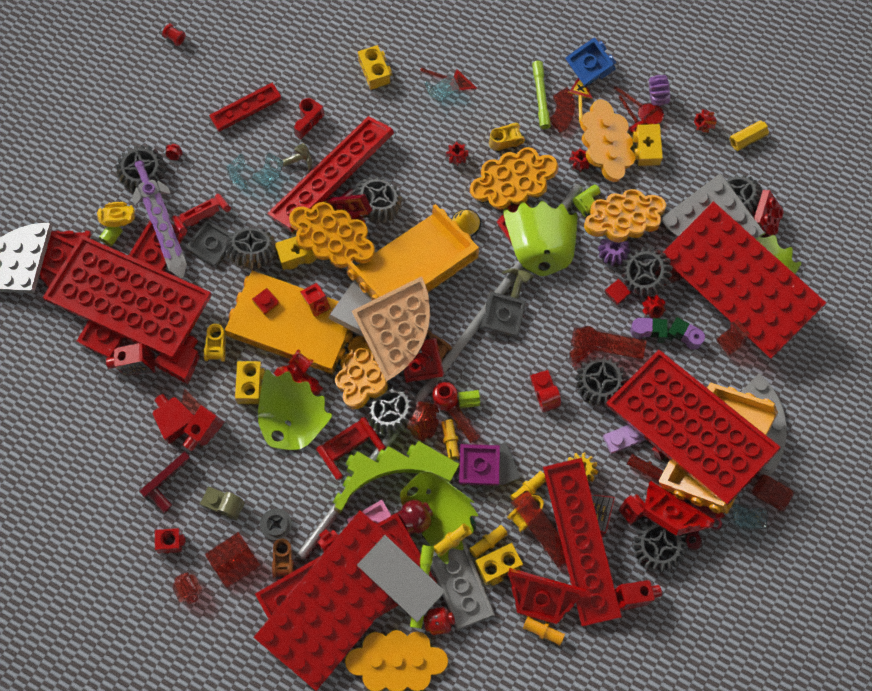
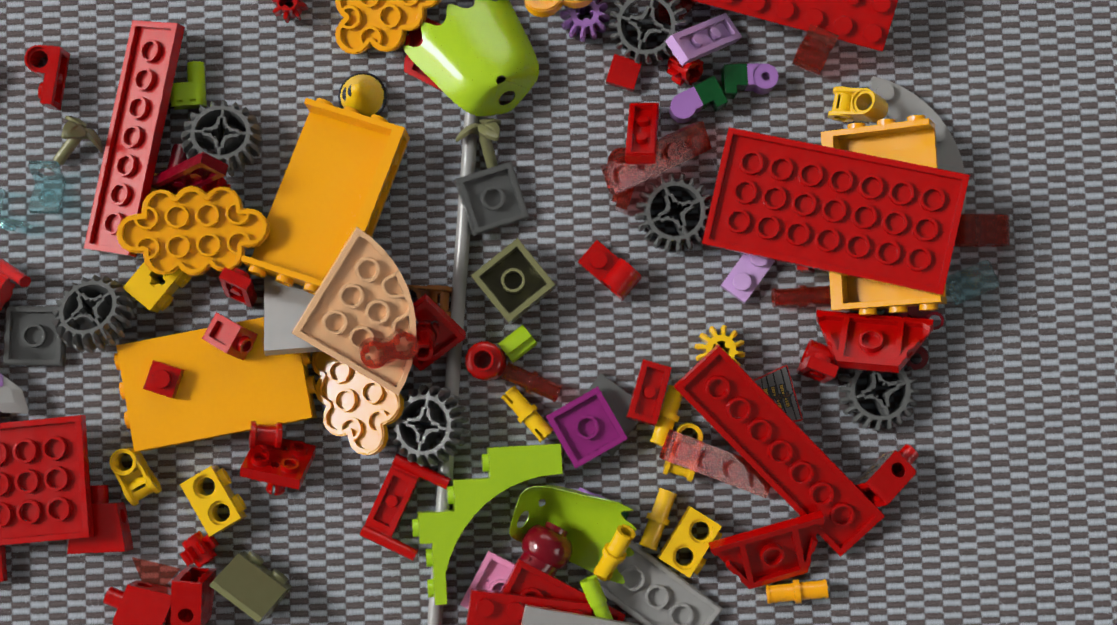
camera: 25 degrees left, 15 degrees up
(132, 359) = (36, 568): red torso -> none
(224, 403) = (199, 549): none -> red gear
(240, 439) = (251, 585): none -> olive slope
(286, 400) = (275, 502): lime piece -> none
(336, 278) = (238, 286): none -> red plate
(373, 168) = (191, 93): none -> lime piece
(398, 347) = (388, 348): none -> clear red axle
(424, 421) = (478, 413): clear red plate -> none
(487, 363) = (513, 281): none -> olive brick
(526, 467) = (649, 392): none -> red plate
(608, 325) = (642, 133): none -> red tile
(672, 296) = (703, 39): none -> lavender plate
(740, 380) = (852, 105): none -> yellow piece

